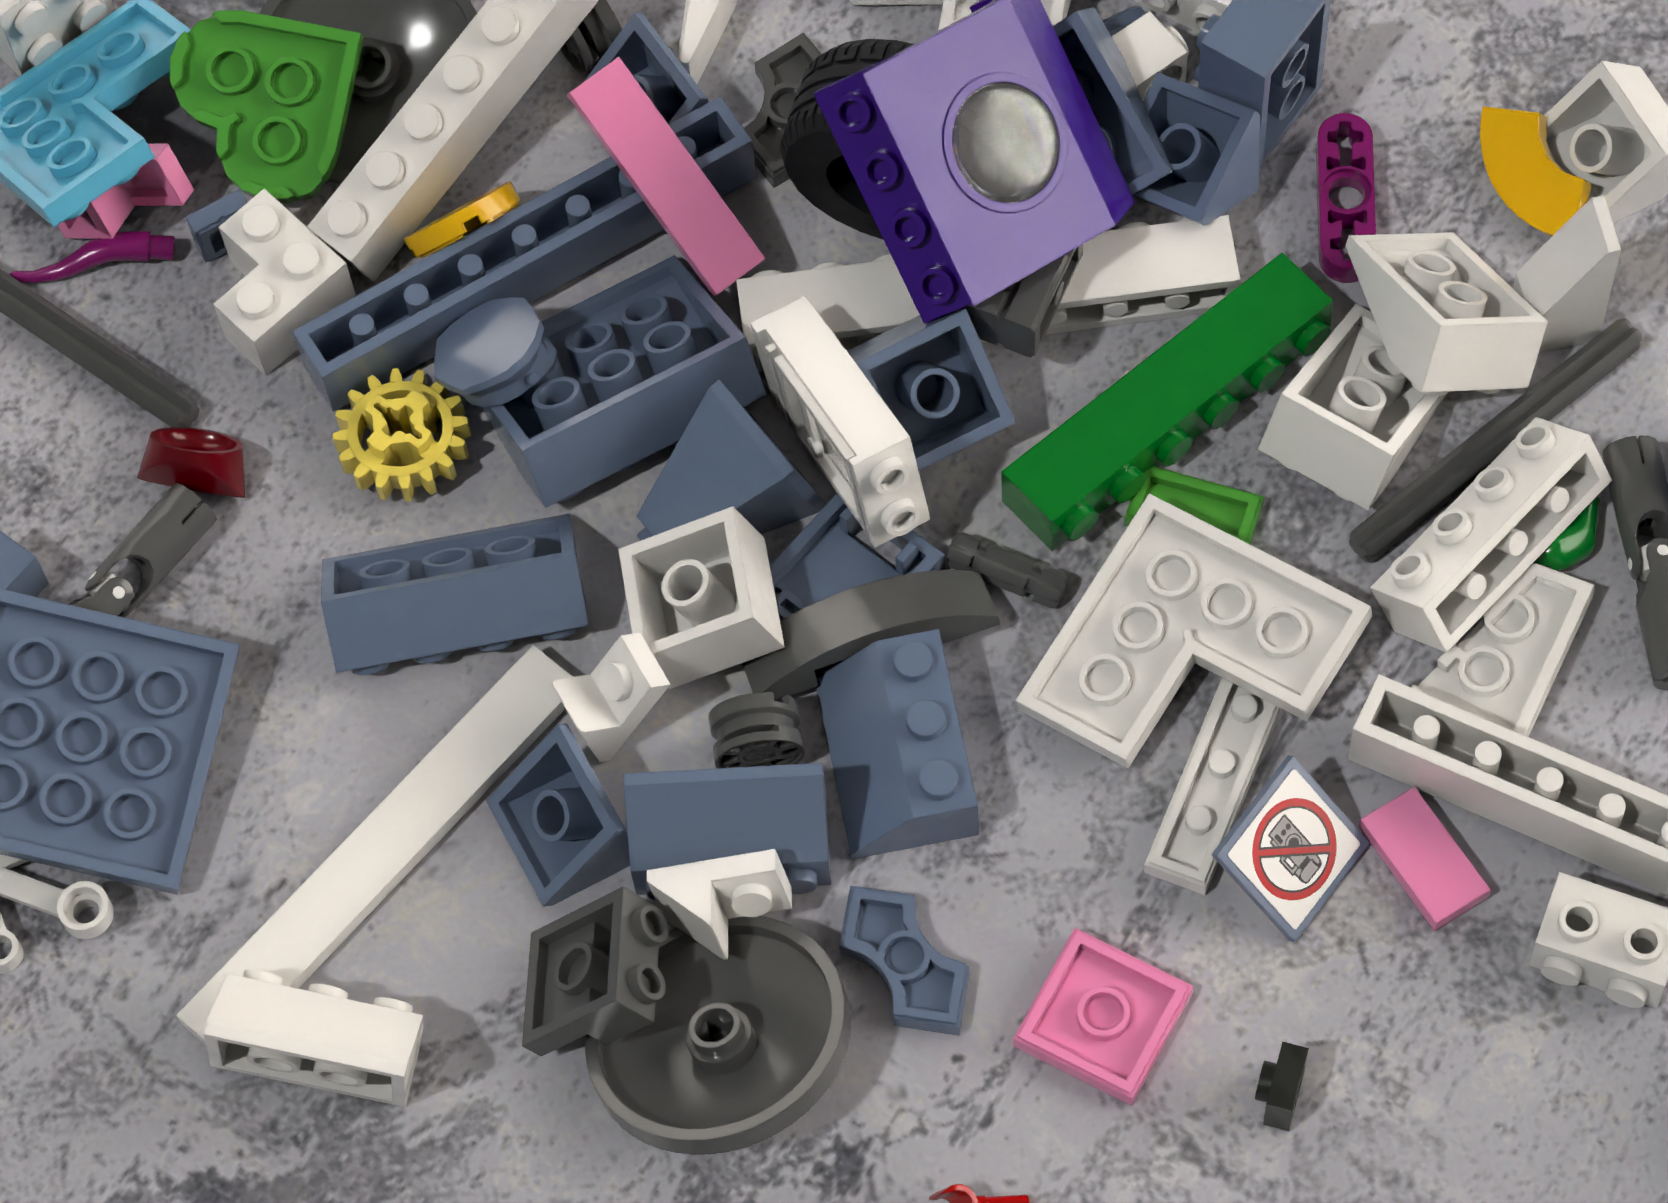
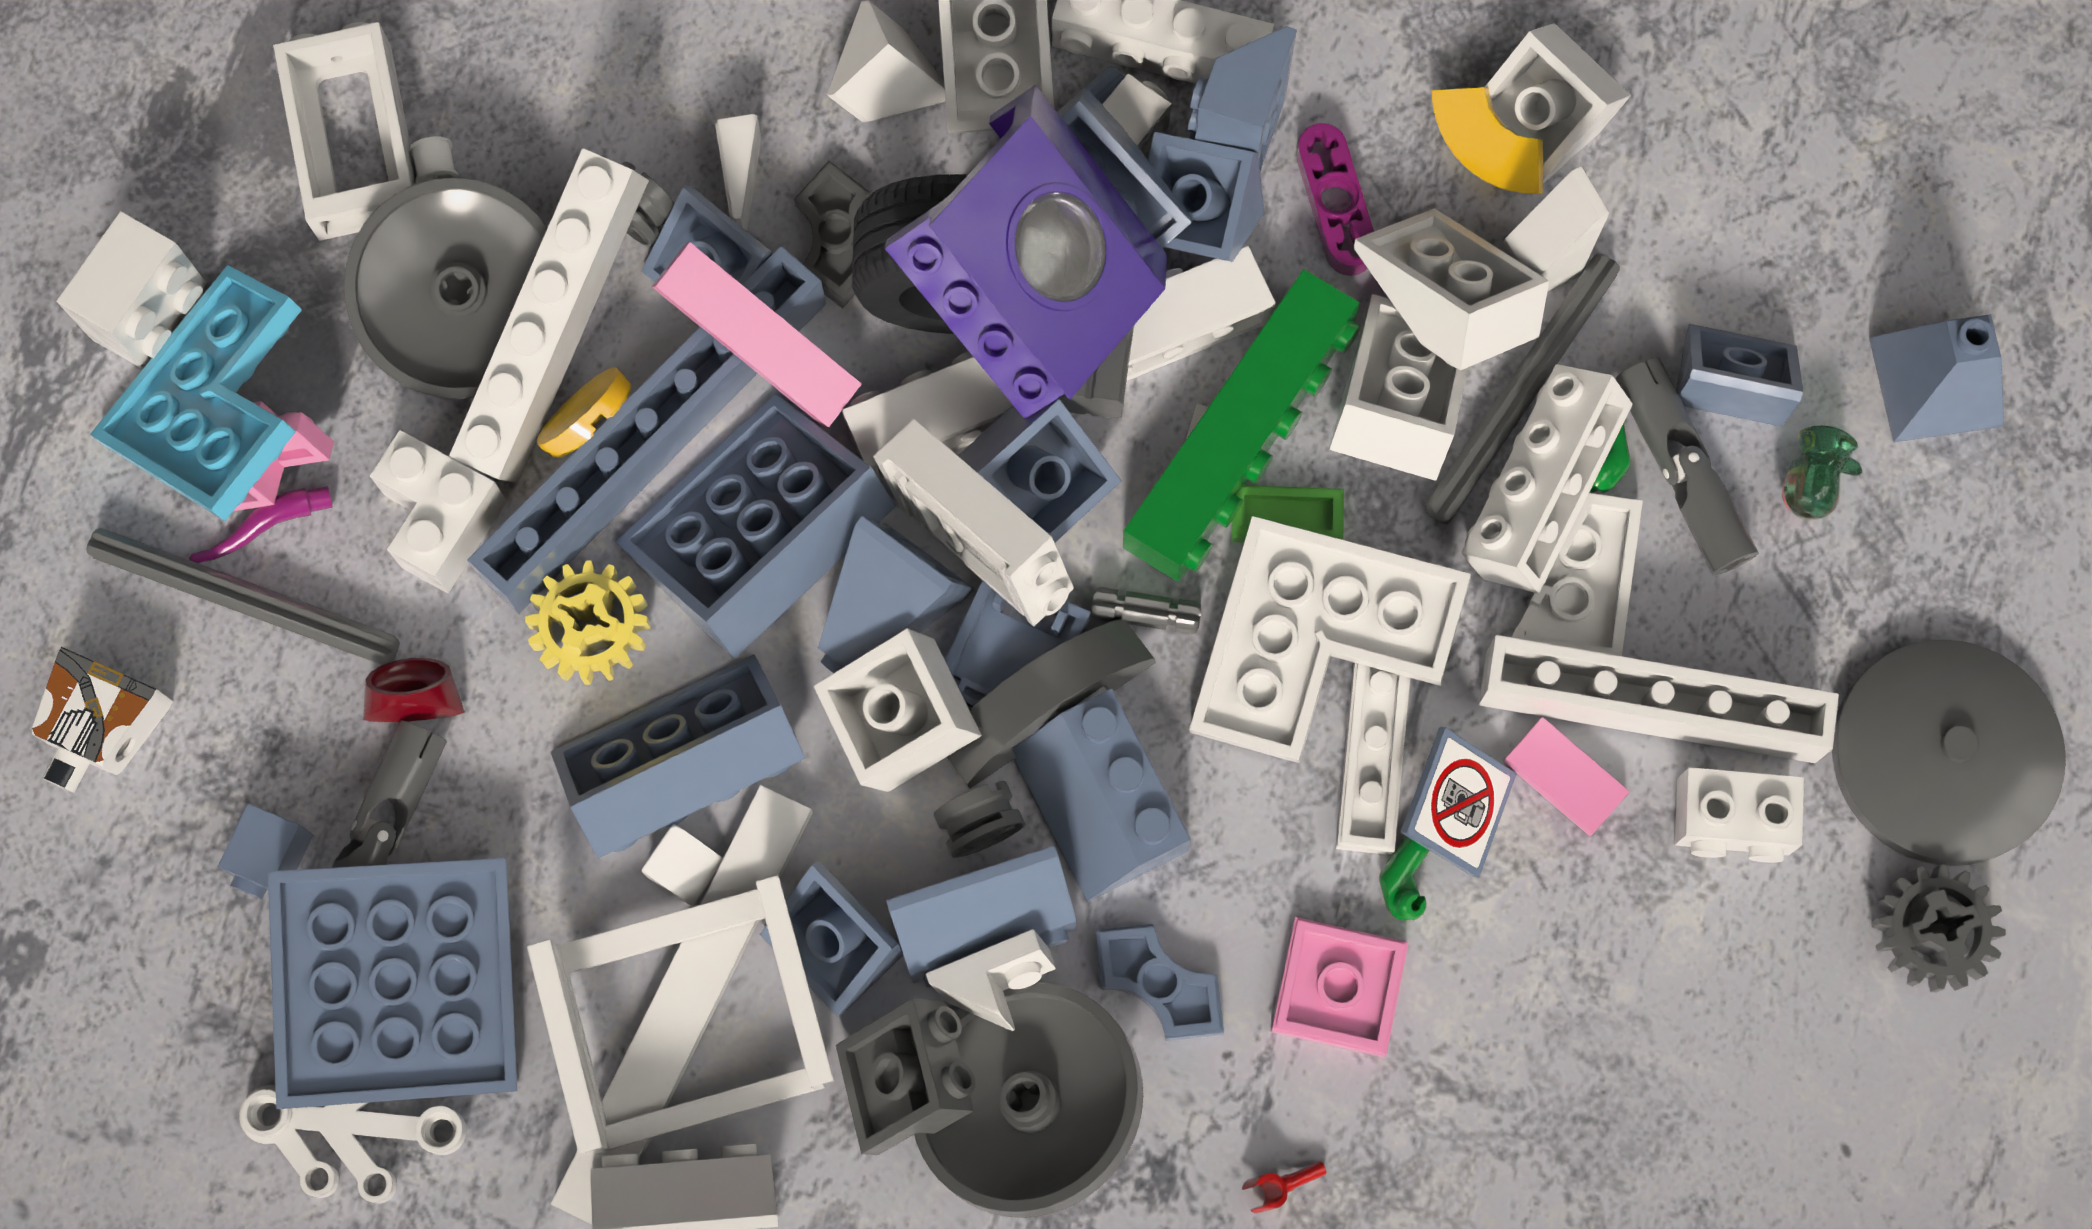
camera: 20 degrees left, 10 degrees up
(206, 221) = (358, 468): sand blue tile -> none
(245, 854) = (552, 972): none -> white piece
(272, 95) = (378, 338): bright green plate -> none
(423, 705) = (682, 865): none -> white slope
(493, 352) = (649, 531): sand blue hat -> none
(614, 696) = (849, 819): white slope -> none
(1202, 917) = (1399, 884): none -> green arm
(1281, 1084) = (1508, 1011): pearl dark grey plate -> none

